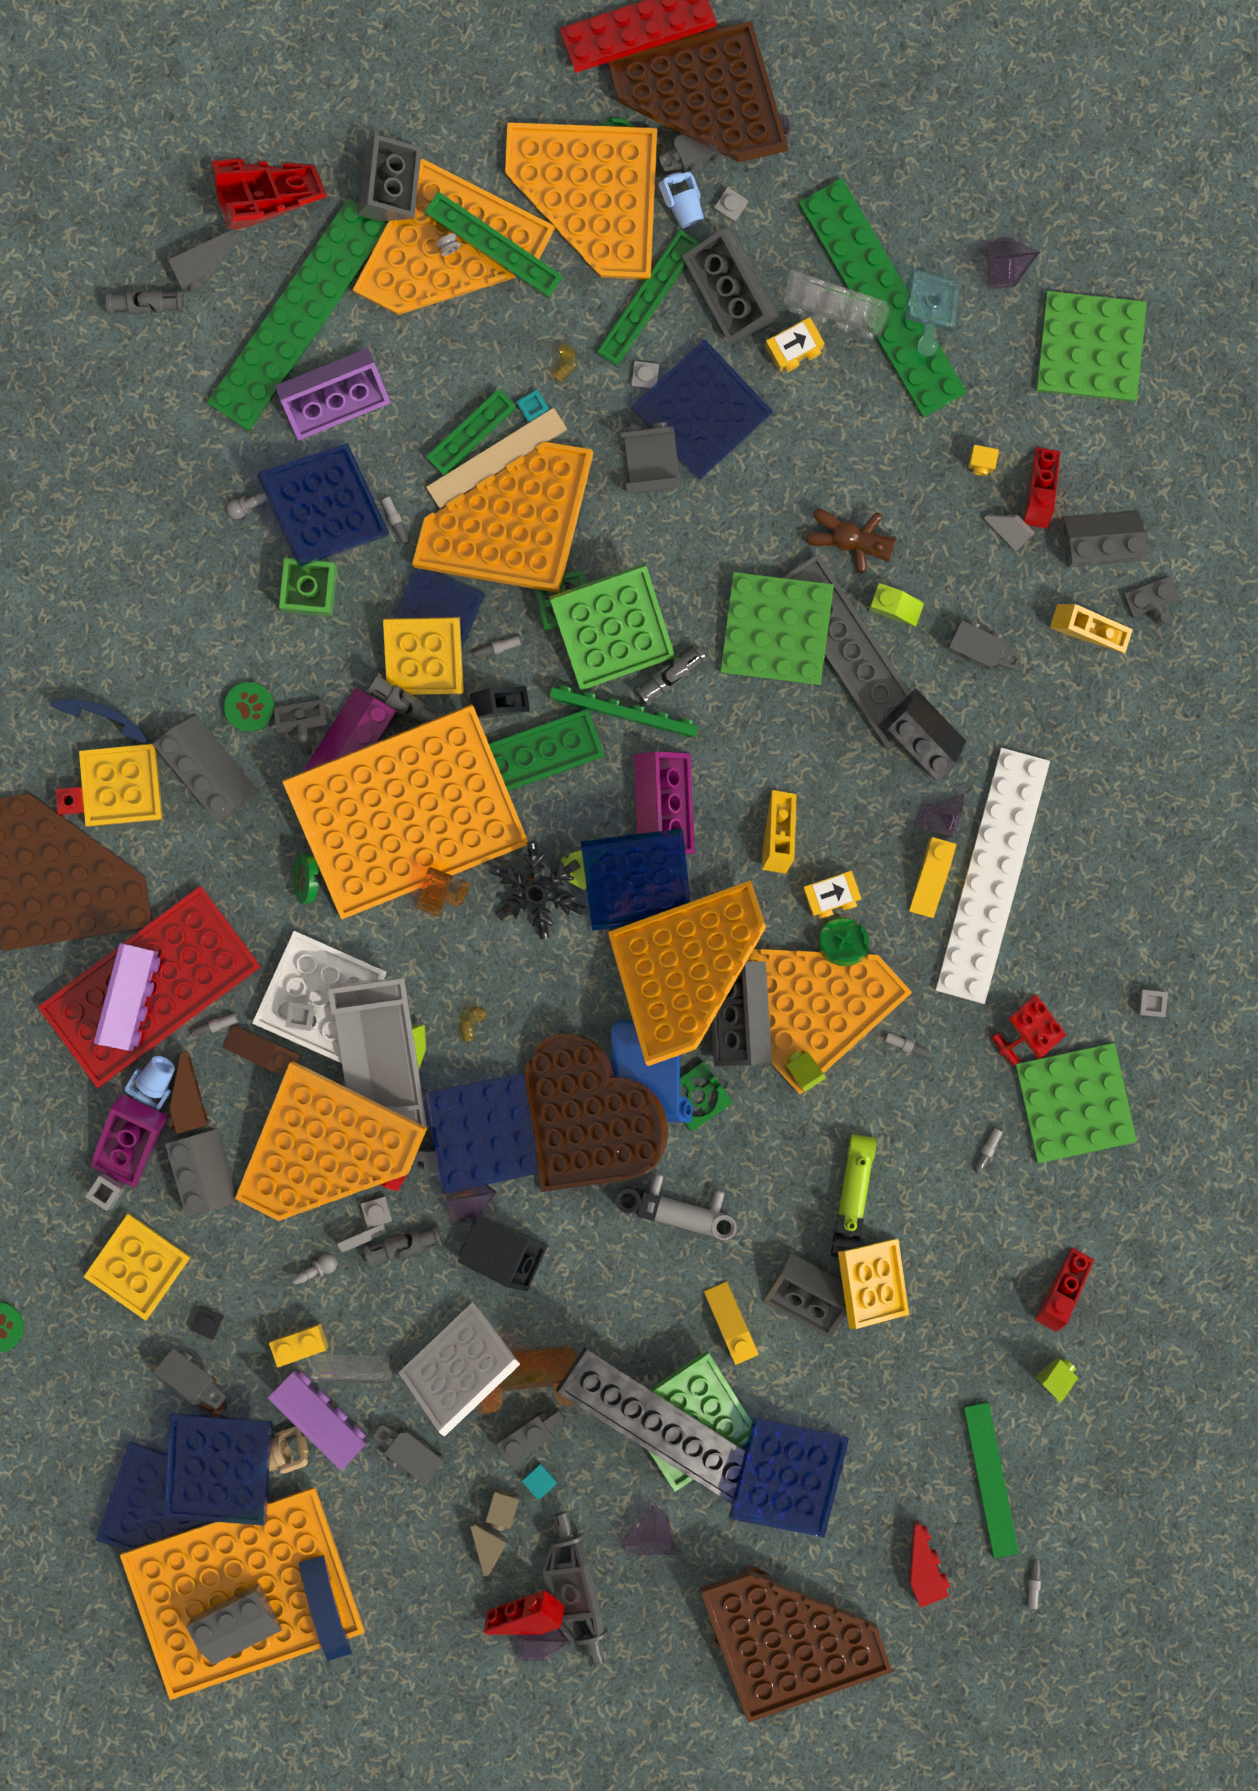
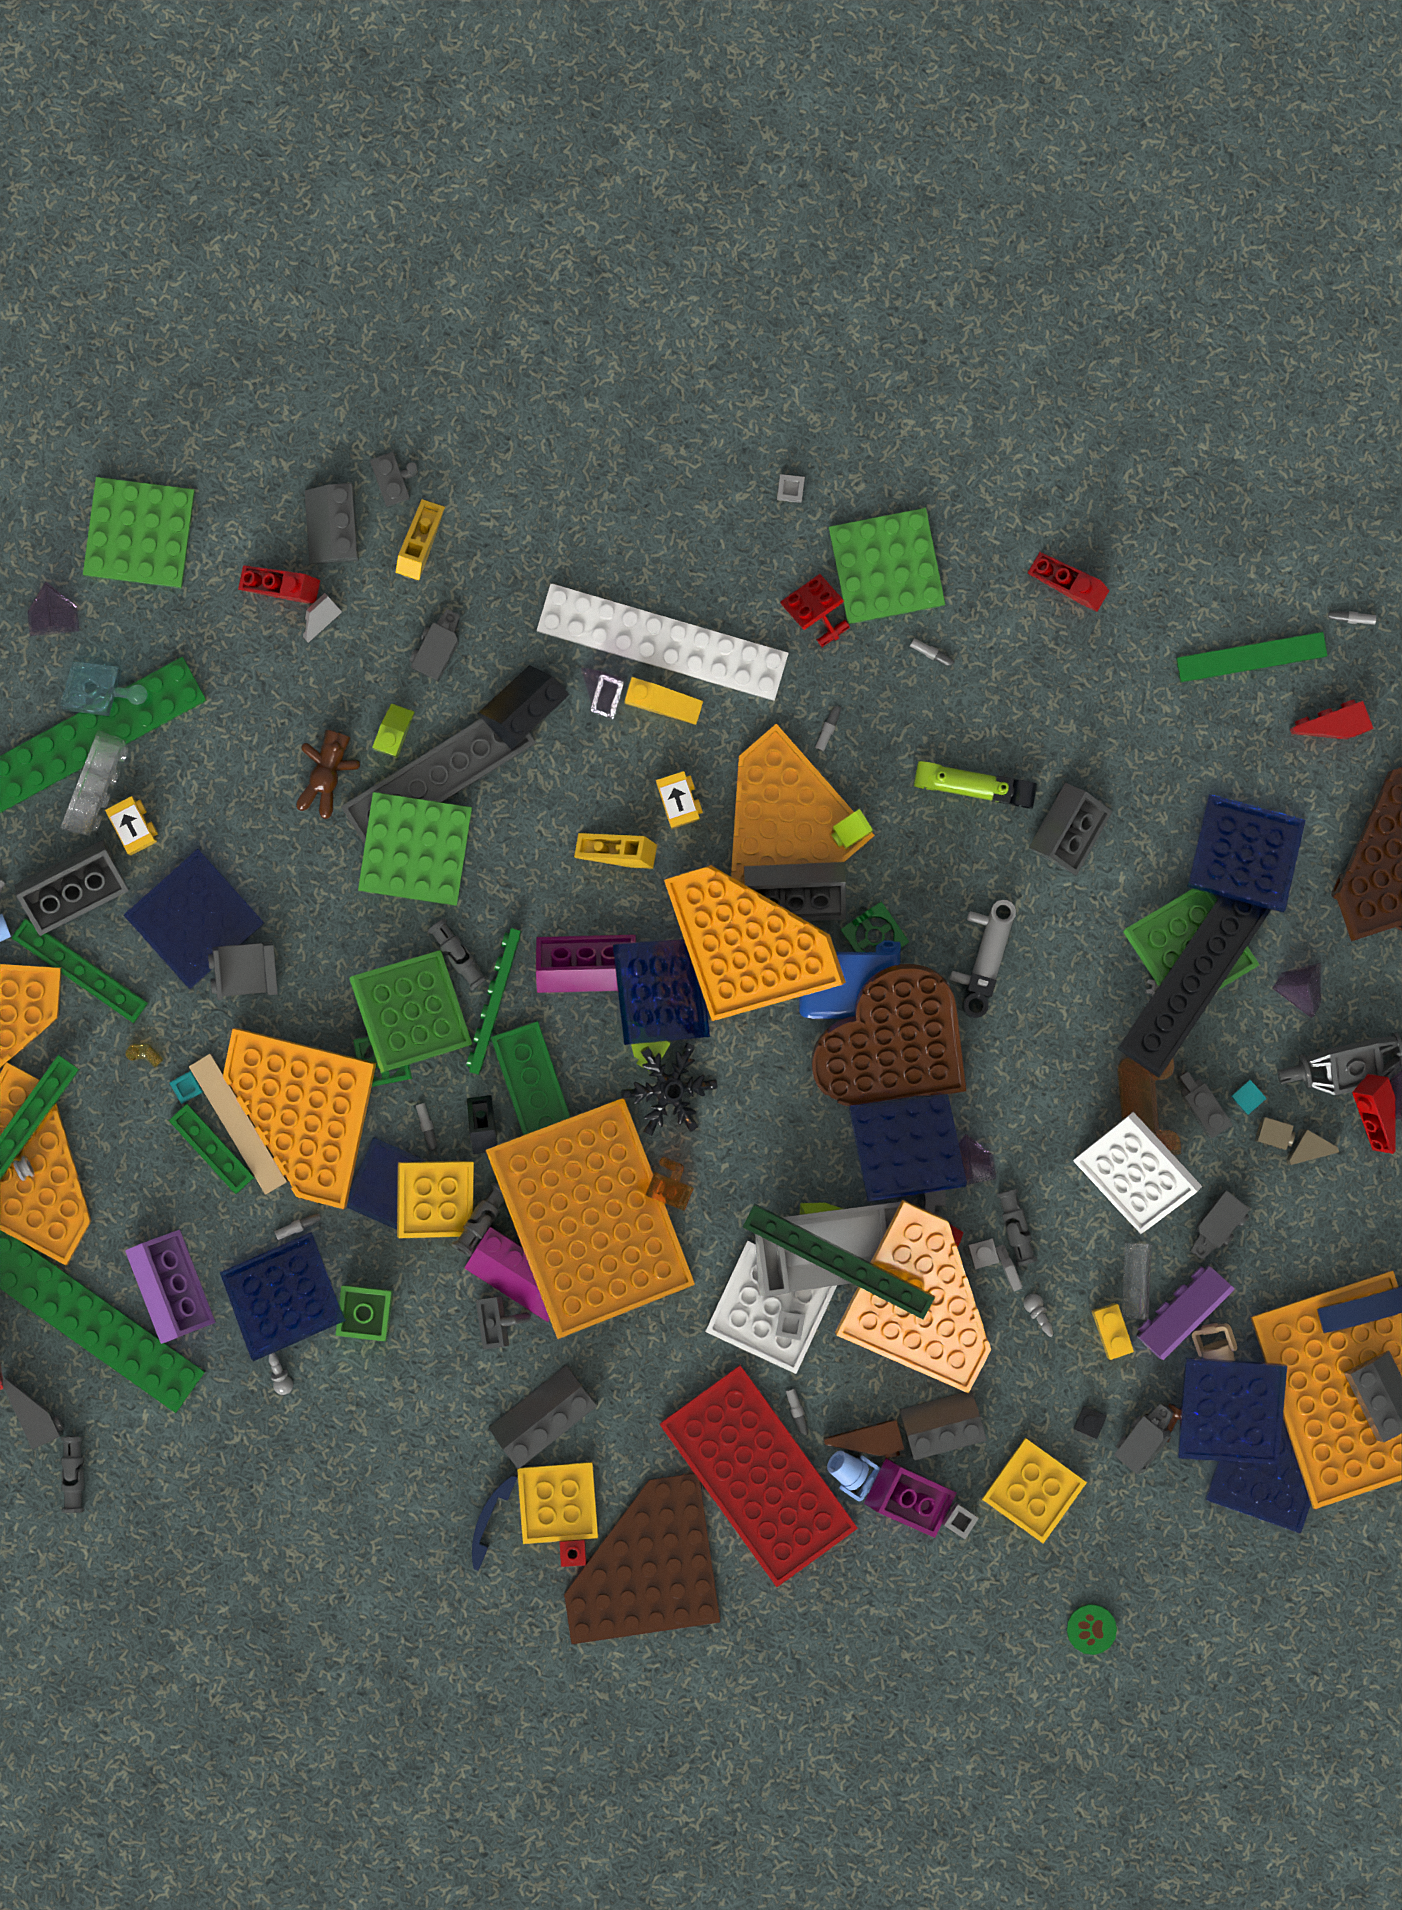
camera: 90 degrees left, 0 degrees up
(126, 997) = (768, 1495): slope -> none
(249, 707) = (481, 1374): green tile -> none
(260, 1050) = (823, 1365): reddish brown slope -> none
(304, 884) = (654, 1320): green tile -> none
(362, 1063) = (839, 1261): none -> dark green plate
(469, 1020) = (796, 1159): clear yellow arm -> none
(502, 1253) = (1026, 1130): black slope -> none
(645, 375) = (157, 975): light grey plate -> none
(731, 1323) = (1096, 906): yellow slope -> none
(843, 942) = (725, 789): green tile -> none
(873, 1283) = (1059, 767): yellow plate -> none
(983, 460) = (251, 642): yellow plate -> none
(1058, 1378) = (1153, 590): lime slope -> none

